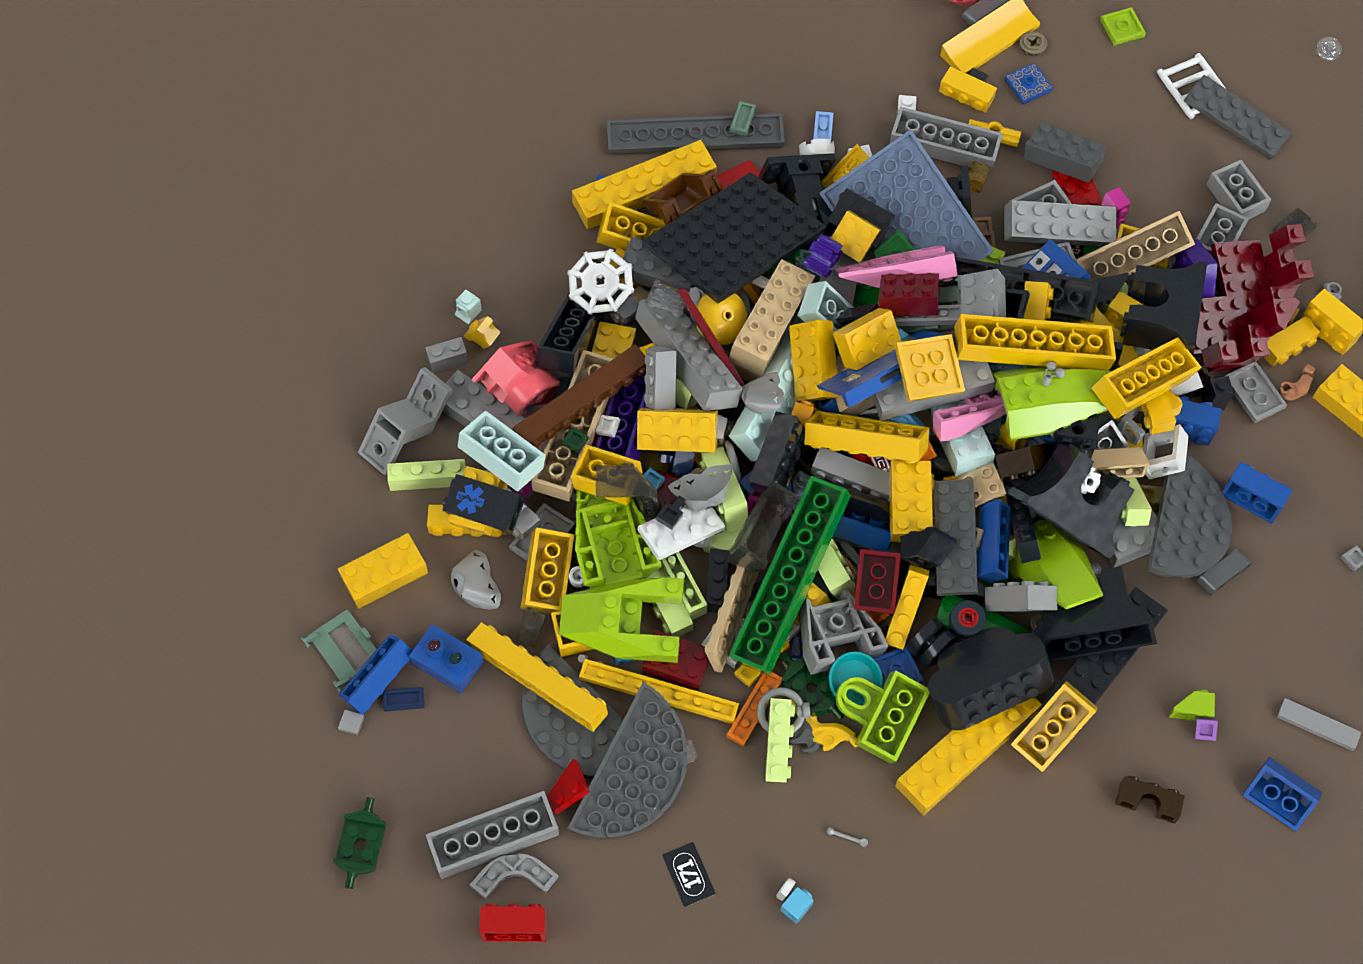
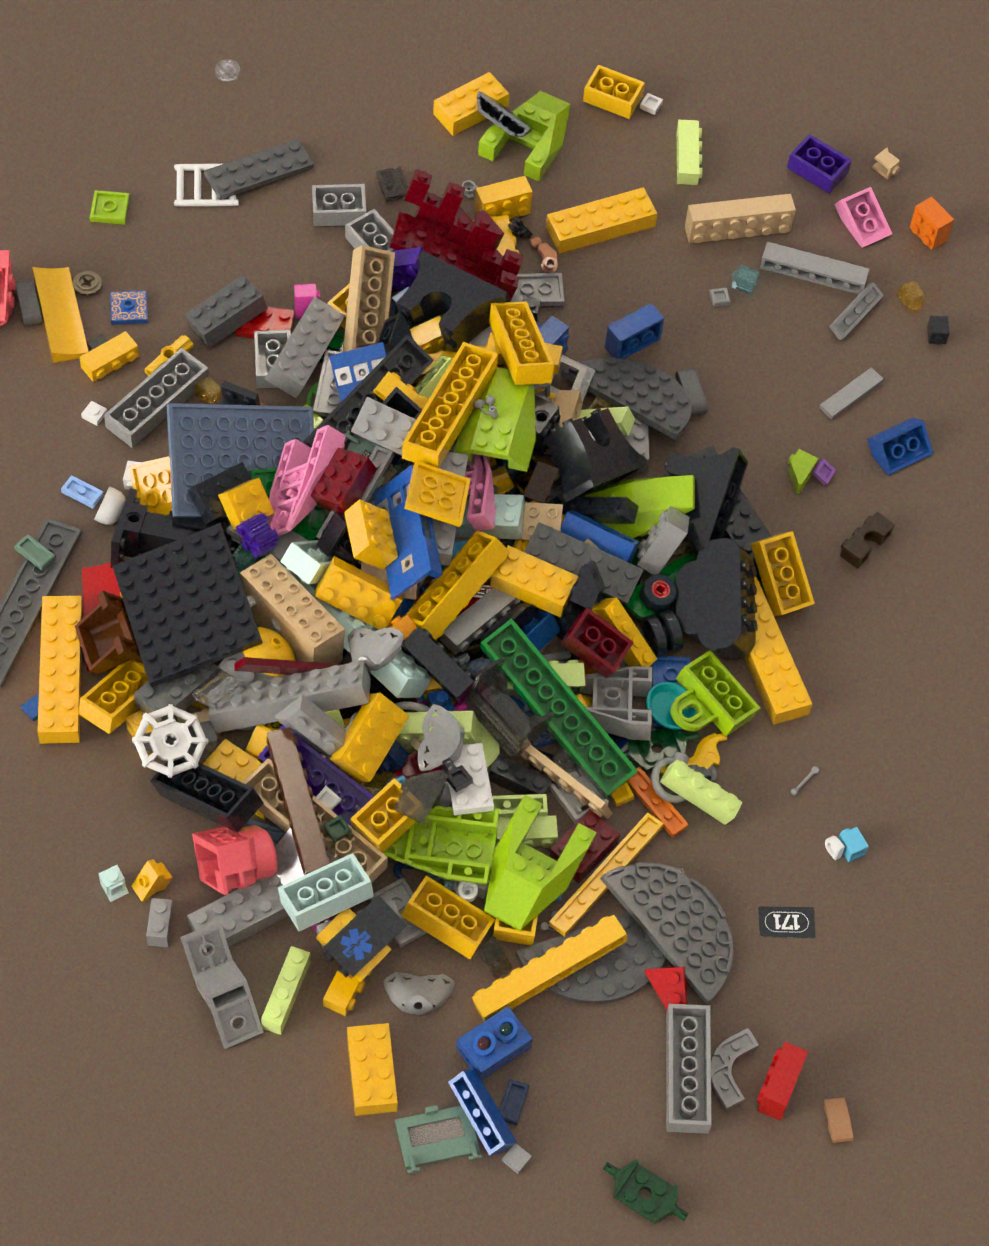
camera: 70 degrees left, 5 degrees down
(1315, 349) = (518, 227): none -> black plate

